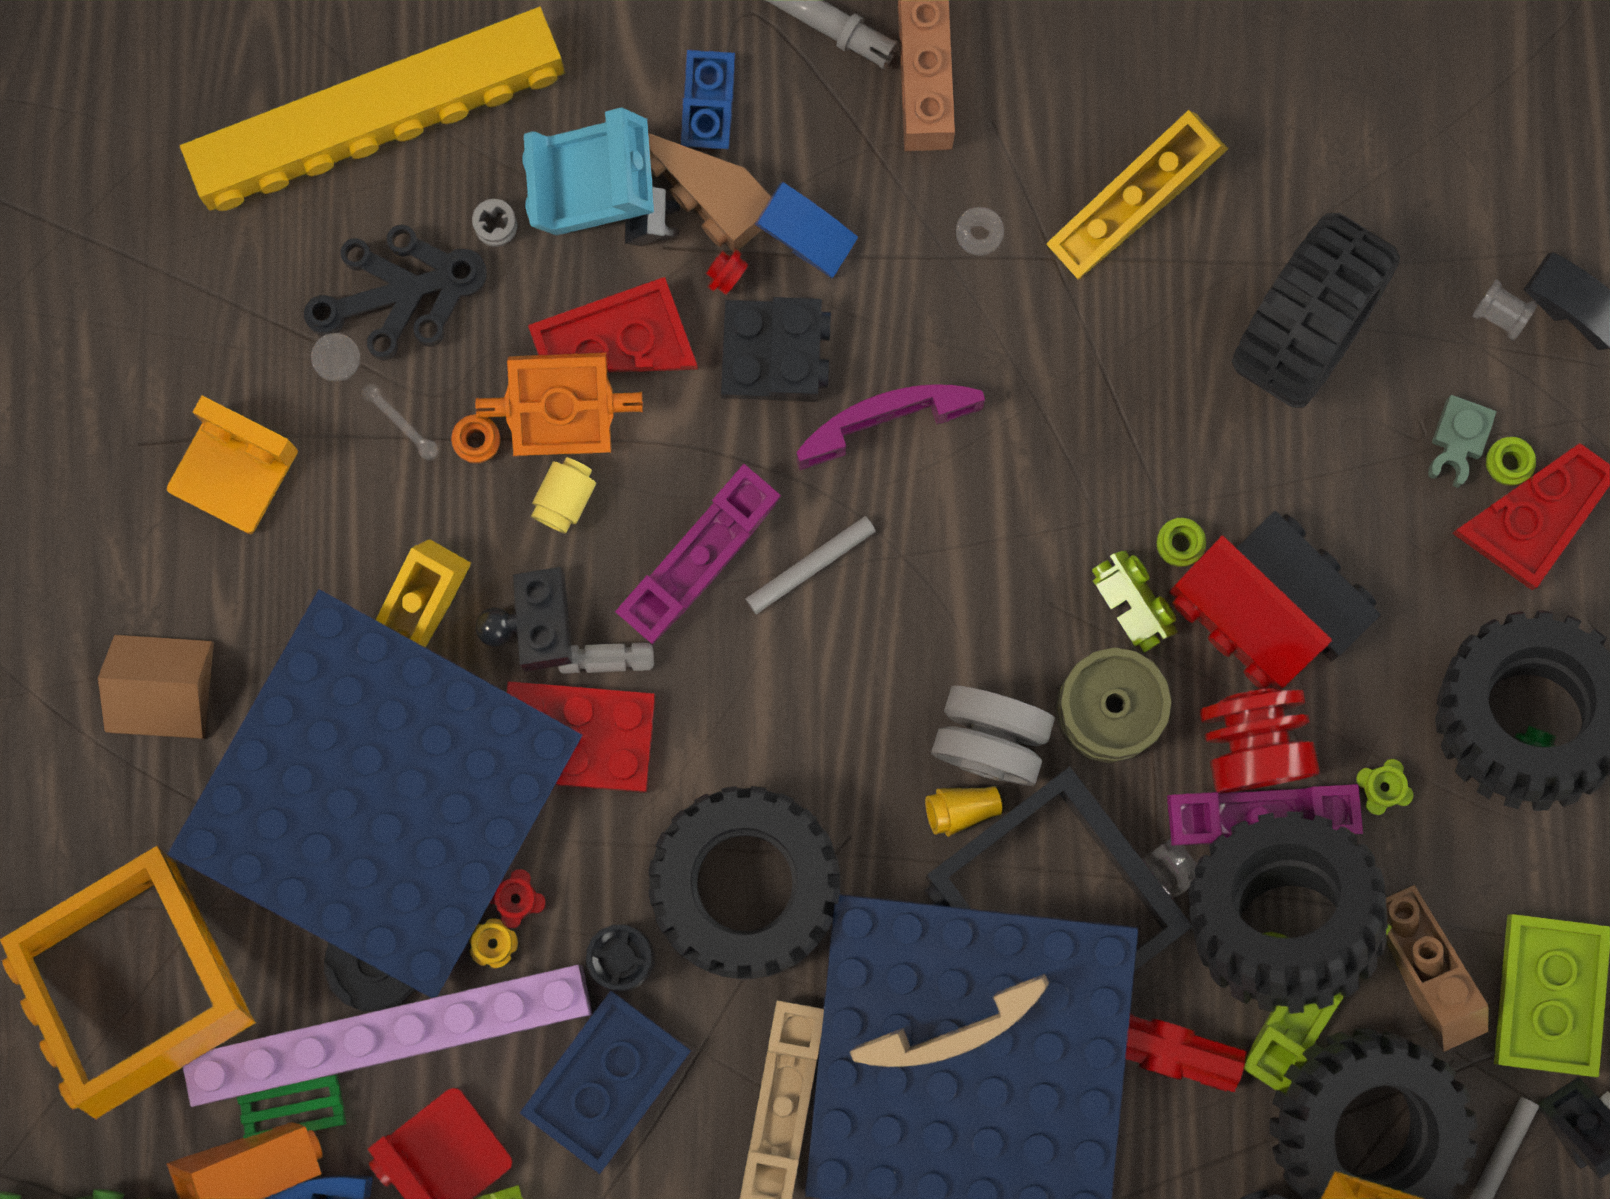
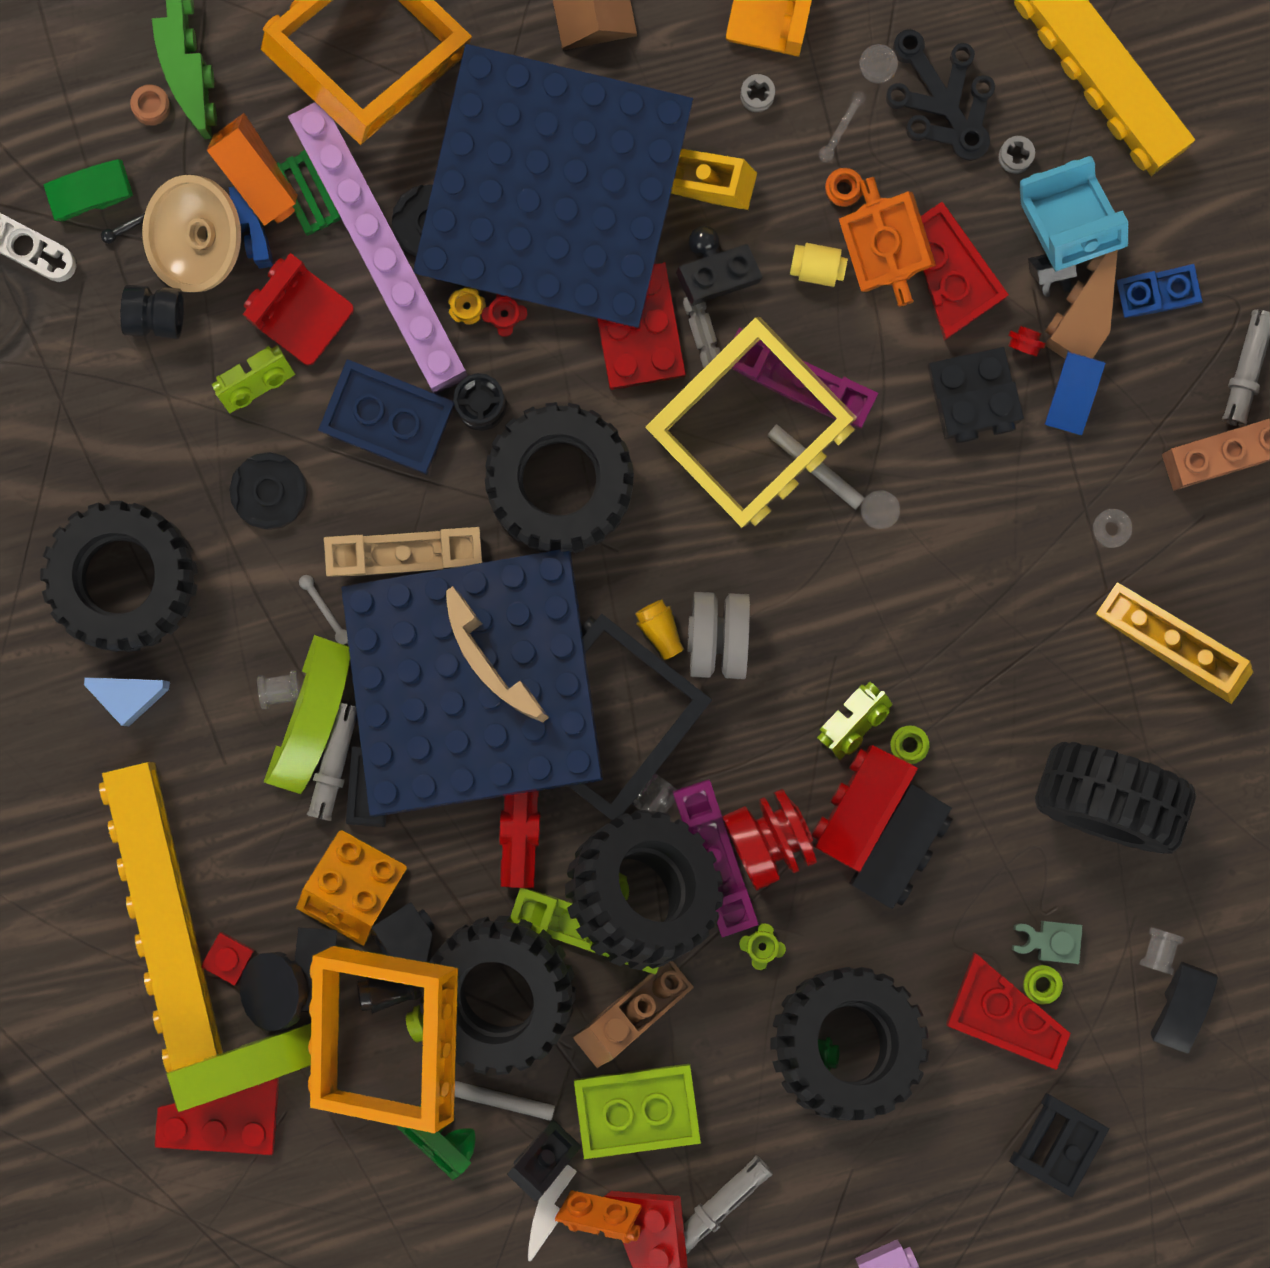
camera: 70 degrees right, 5 degrees up
(315, 507) = (758, 81): none -> light grey bush
(823, 604) = (708, 377): none -> light yellow window
(885, 501) = (880, 510): none -> clear plate
(945, 402) = (913, 454): magenta slope -> none
(1142, 712) = (791, 717): olive wheel -> none

